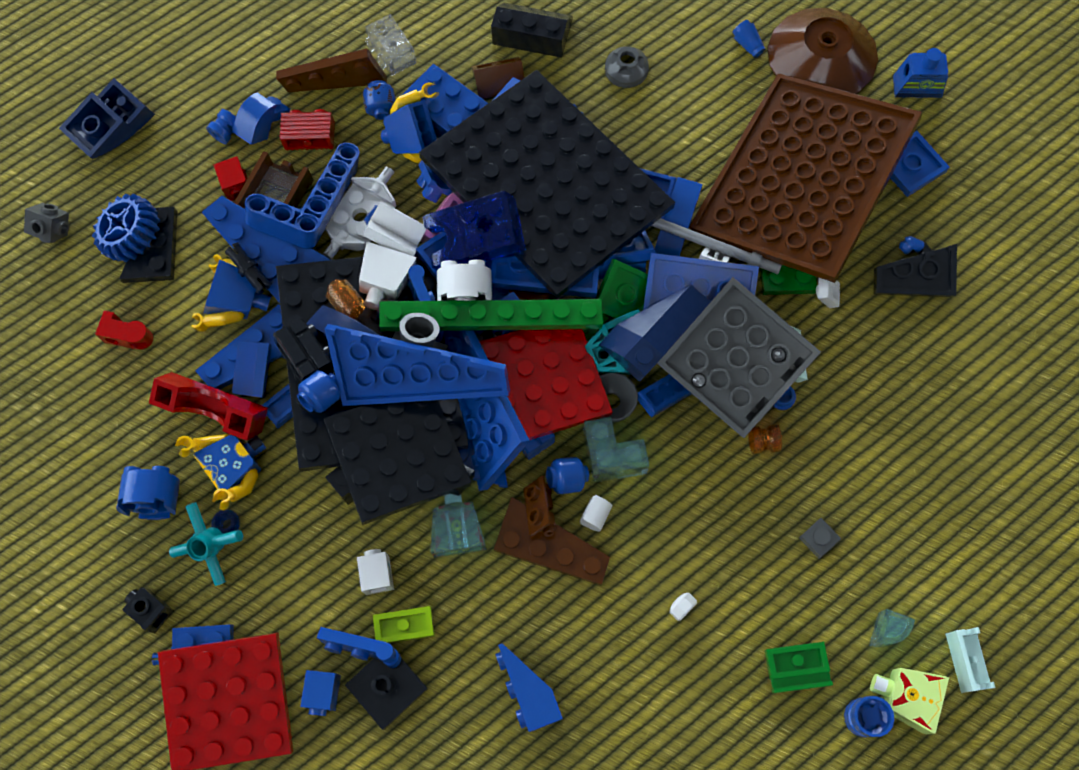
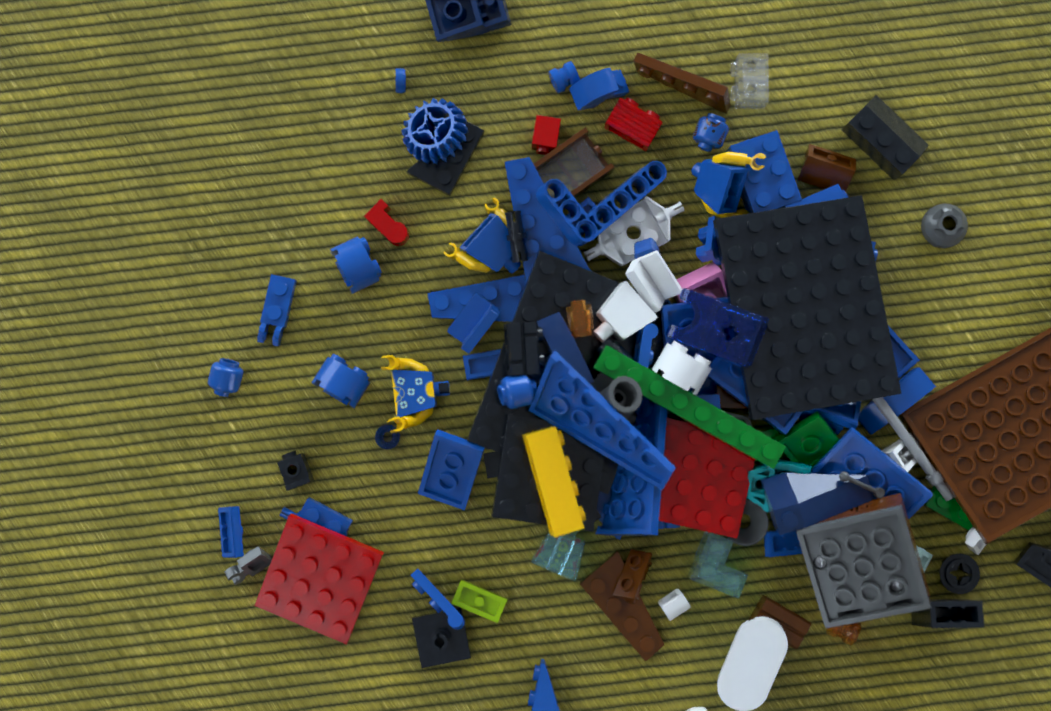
camera: 30 degrees right, 15 degrees up
(28, 559) = (225, 377): none -> blue head
(46, 222) = (372, 84): dark grey brick -> none
(52, 467) = (276, 307): none -> blue hinge
(73, 207) = (400, 80): none -> blue tile
(108, 710) = (231, 532): none -> blue plate
(109, 380) = (355, 264): none -> blue brick
(145, 729) = (250, 564): none -> dark grey plate
(205, 544) = (364, 448): teal bar -> none
(234, 413) = (407, 311): red arch -> none
(302, 512) = (451, 469): none -> blue plate
(320, 692) = (391, 613): blue brick -> none
(375, 572) = (480, 547): white brick -> none
(400, 450) = (553, 481): none -> yellow brick
(567, 475) = (670, 562): blue head -> none
(702, 521) = (752, 663): none -> white tile
(703, 470) = (792, 624): none -> reddish brown brick
(710, 293) = (877, 492): none -> dark grey hinge
(838, 321) = (965, 583): none -> black gear
(844, 362) = (950, 614): none -> black brick

